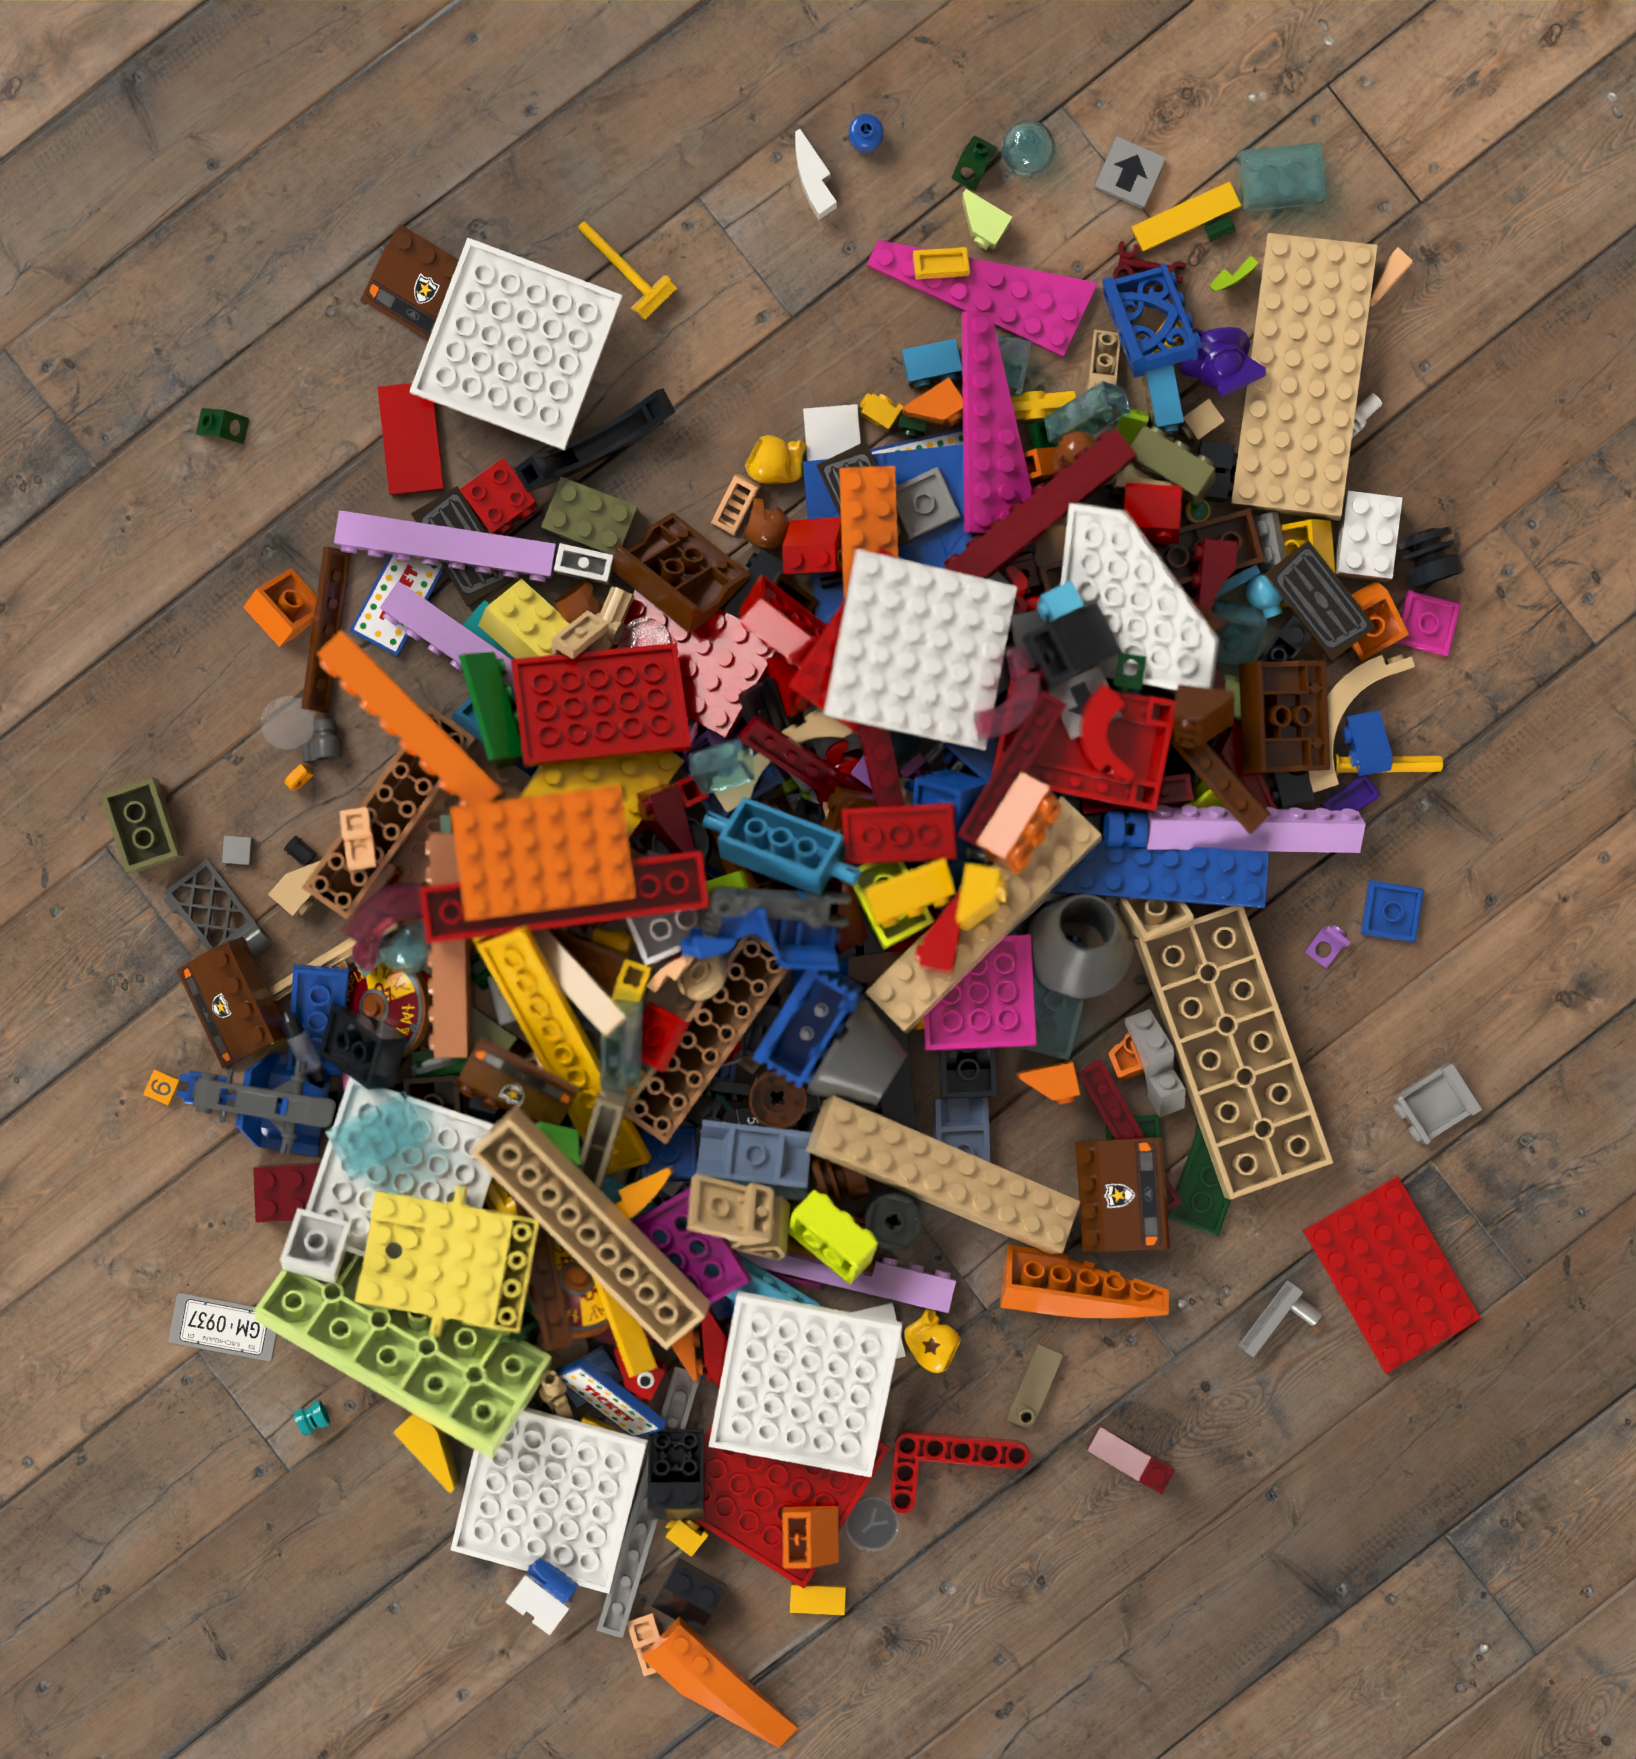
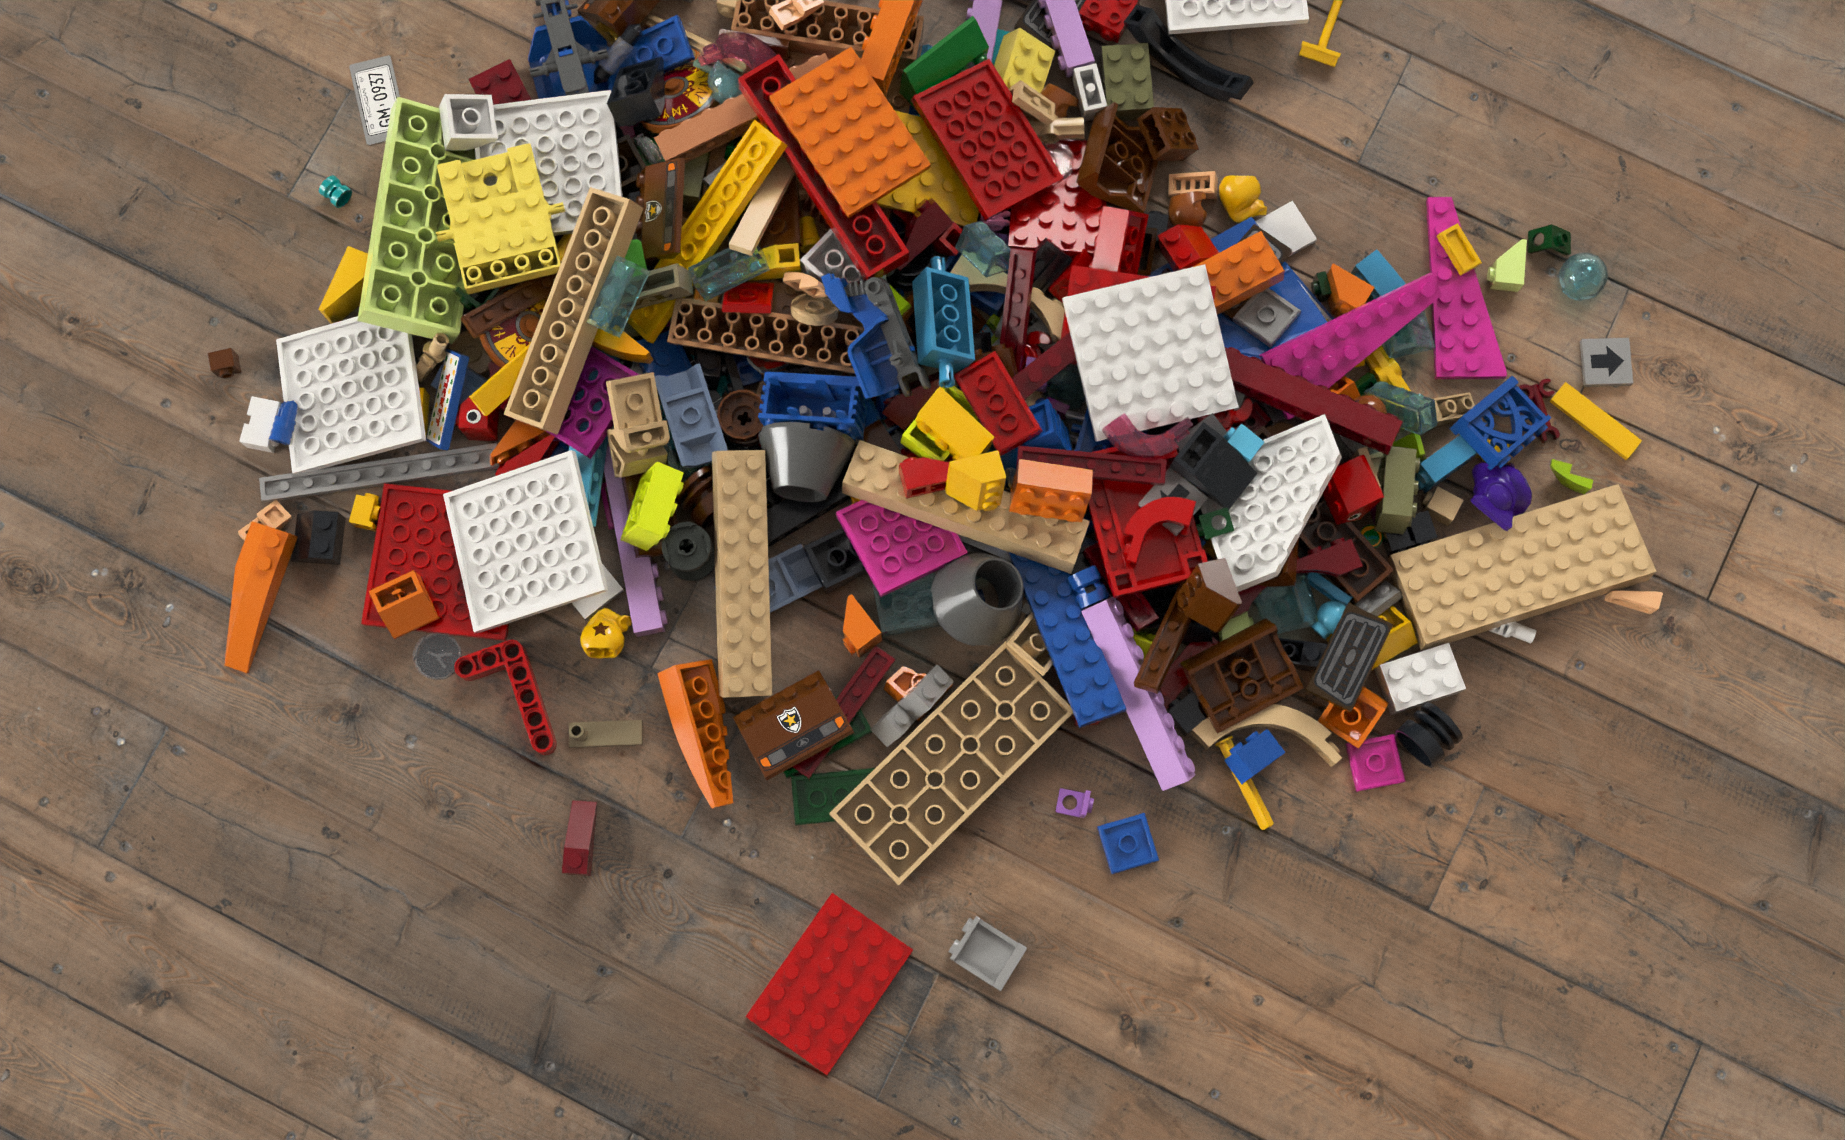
camera: 65 degrees right, 10 degrees down
(378, 1136) = (574, 127): clear light blue brick -> none
(451, 1615) = (224, 363): none -> reddish brown plate
(602, 1175) = (618, 296): none -> clear light blue brick
(672, 505) = (1167, 134): none -> reddish brown brick
(676, 1474) = (408, 480): black slope -> none
(813, 177) = (1473, 126): white slope -> none
(818, 1599) = (357, 641): yellow tile -> none
(857, 133) = (1527, 148): blue head -> none
(880, 411) = (1320, 257): yellow brick -> none
(1219, 228) = (1600, 450): dark green piece -> none
(1281, 177) = (1667, 477): clear light blue brick -> none
(1286, 1299) = (769, 904): light grey piece -> none
(1353, 796) = (1206, 769): dark purple tile -> none

